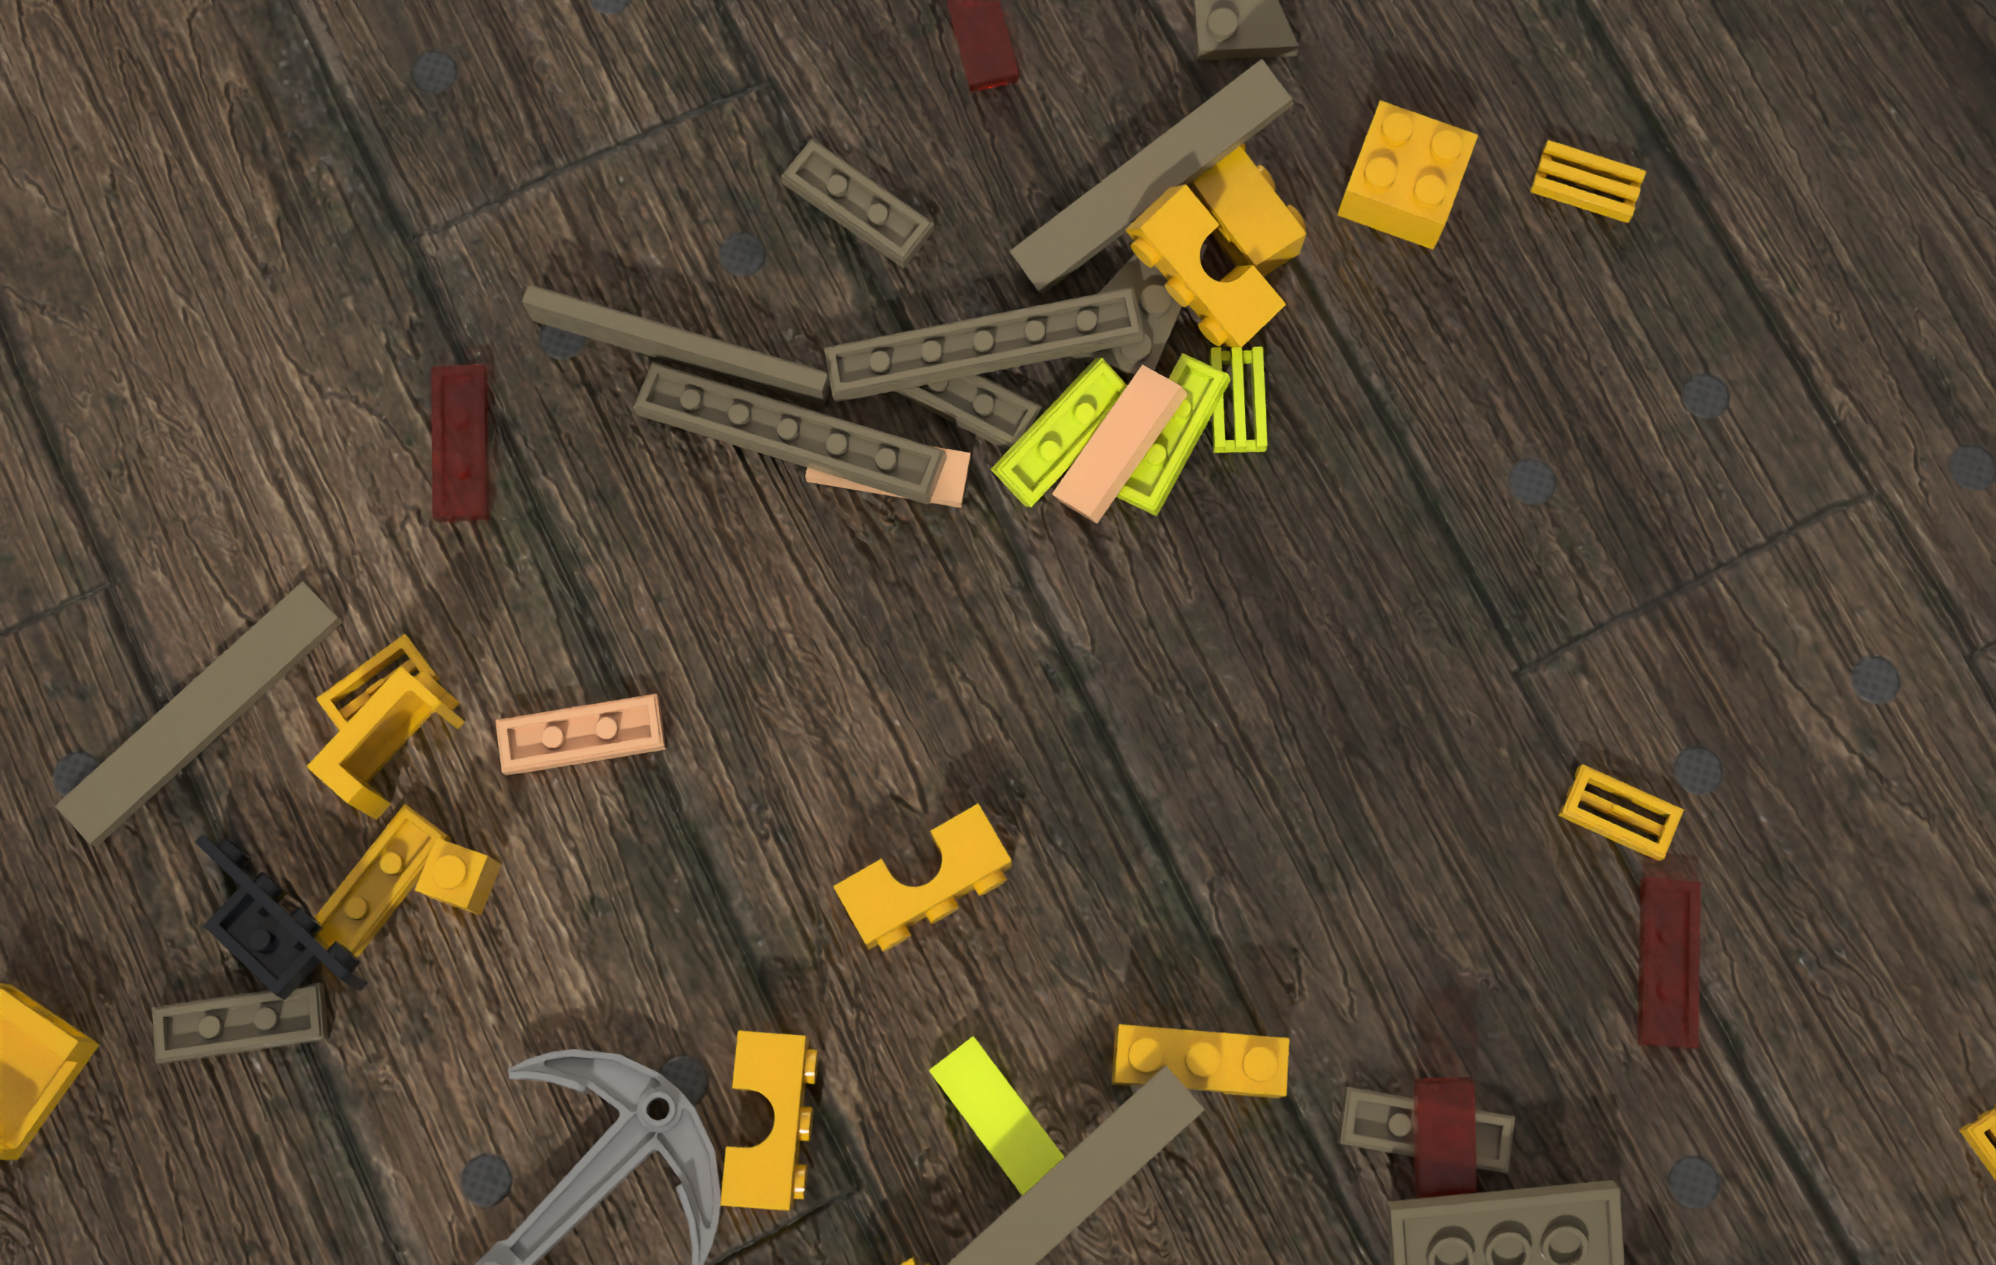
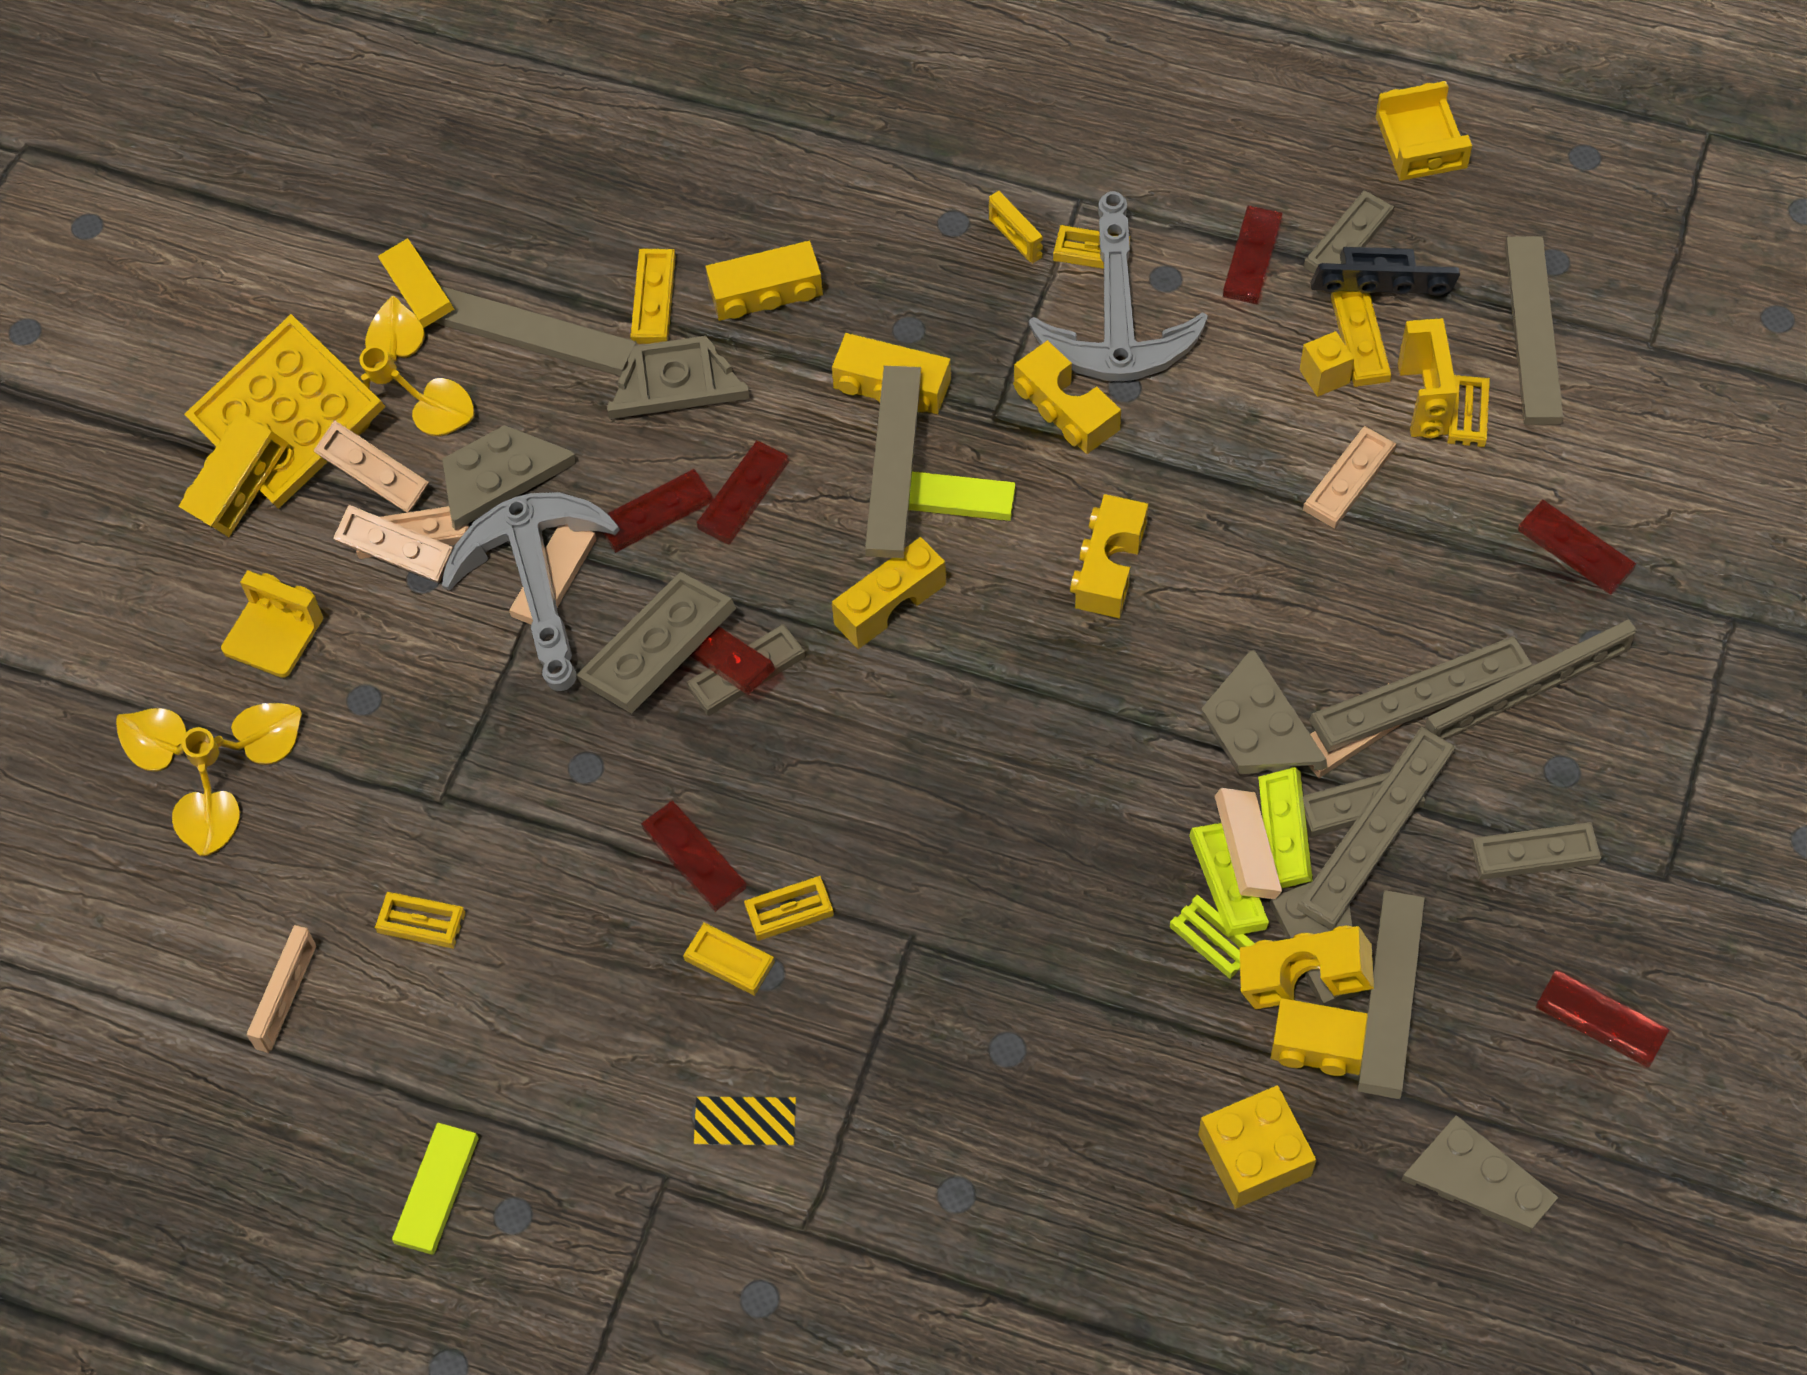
camera: 140 degrees right, 15 degrees down
(364, 1109) = (1252, 255): none -> clear red tile
(973, 556) = (1258, 722): none -> dark tan wing
(1590, 173) = (1183, 1242): yellow tile -> none
(1728, 815) = (729, 958): none -> yellow tile
(1848, 642) = (745, 1120): none -> sticker

